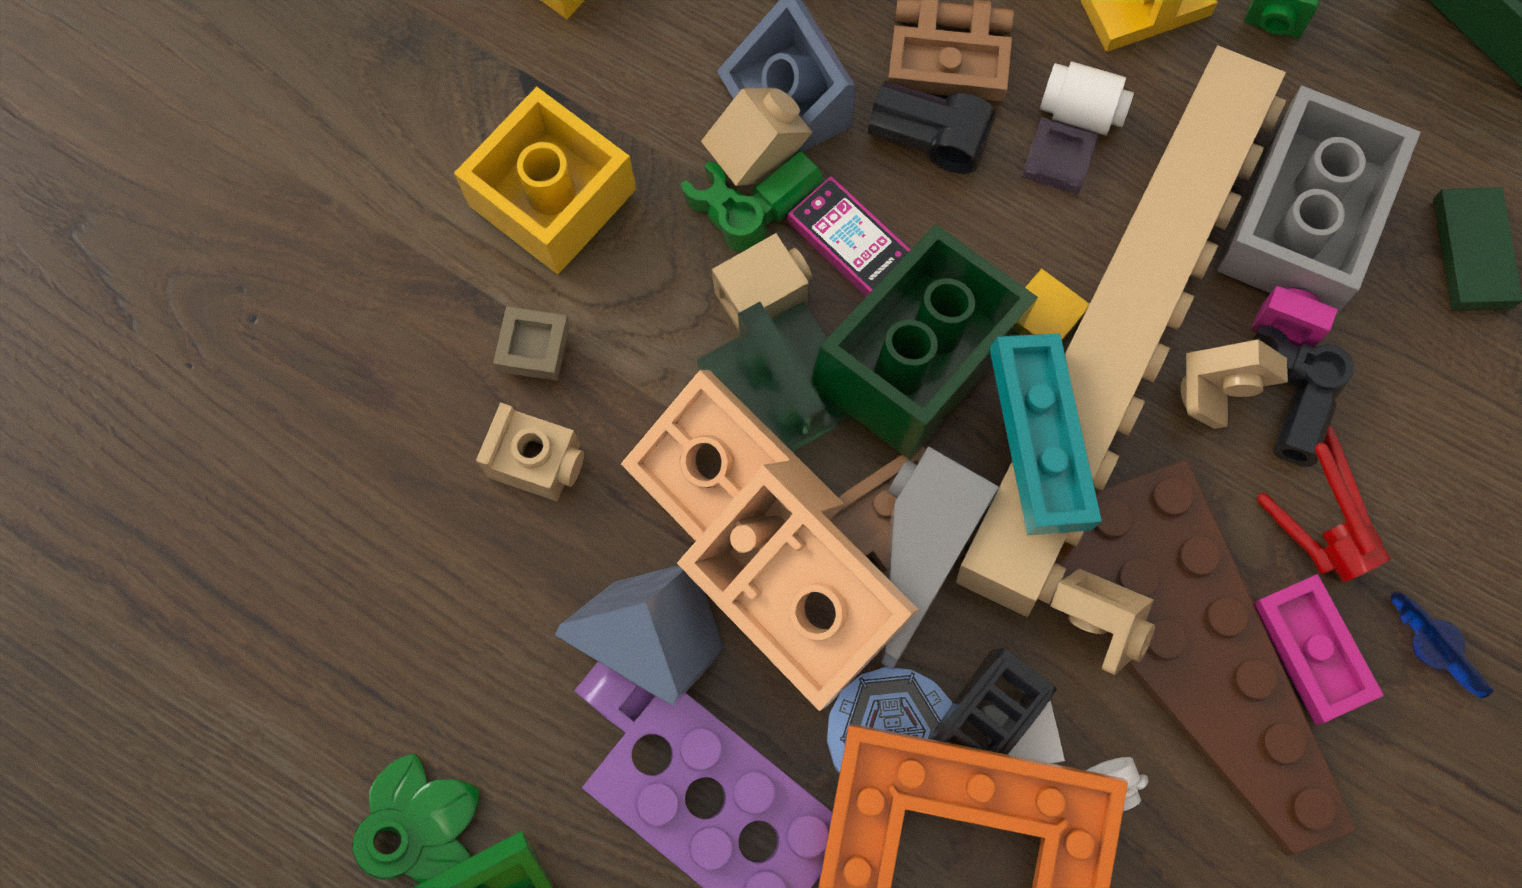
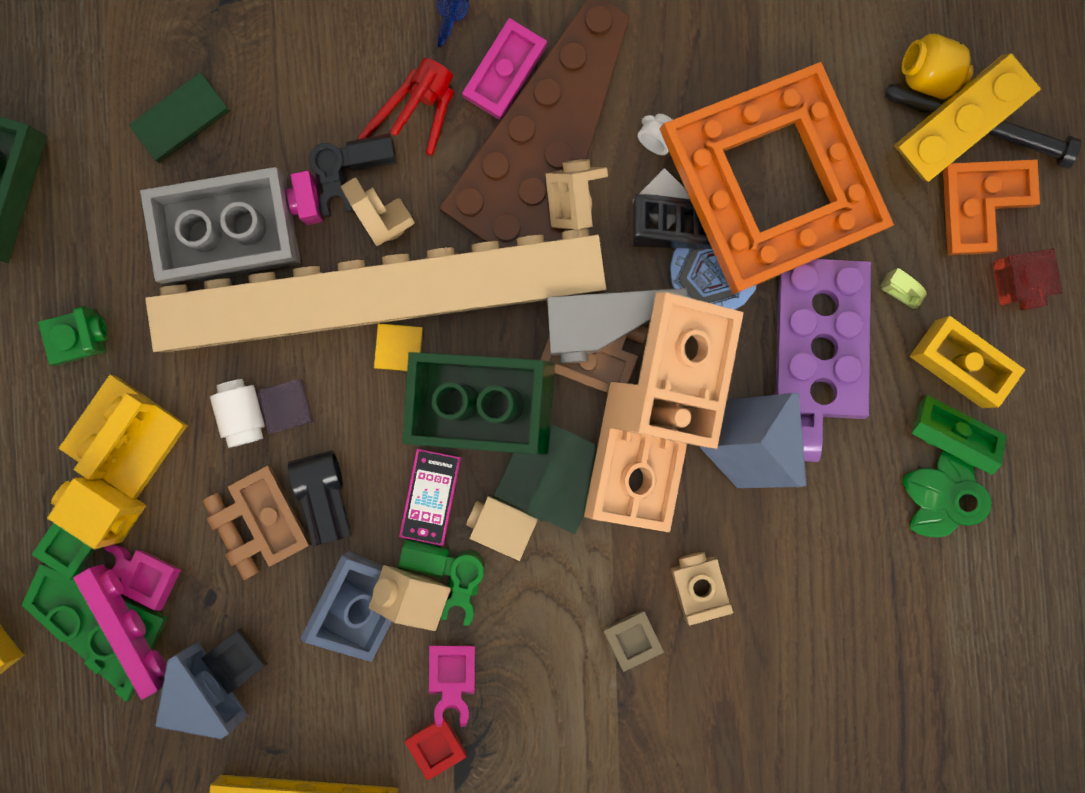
camera: 125 degrees left, 15 degrees up
(547, 180) = (529, 707): yellow brick -> none
(578, 71) = (435, 748): none -> red plate
(639, 129) = (451, 675): none -> dark pink plate
(1044, 434) = (499, 291): teal plate -> none

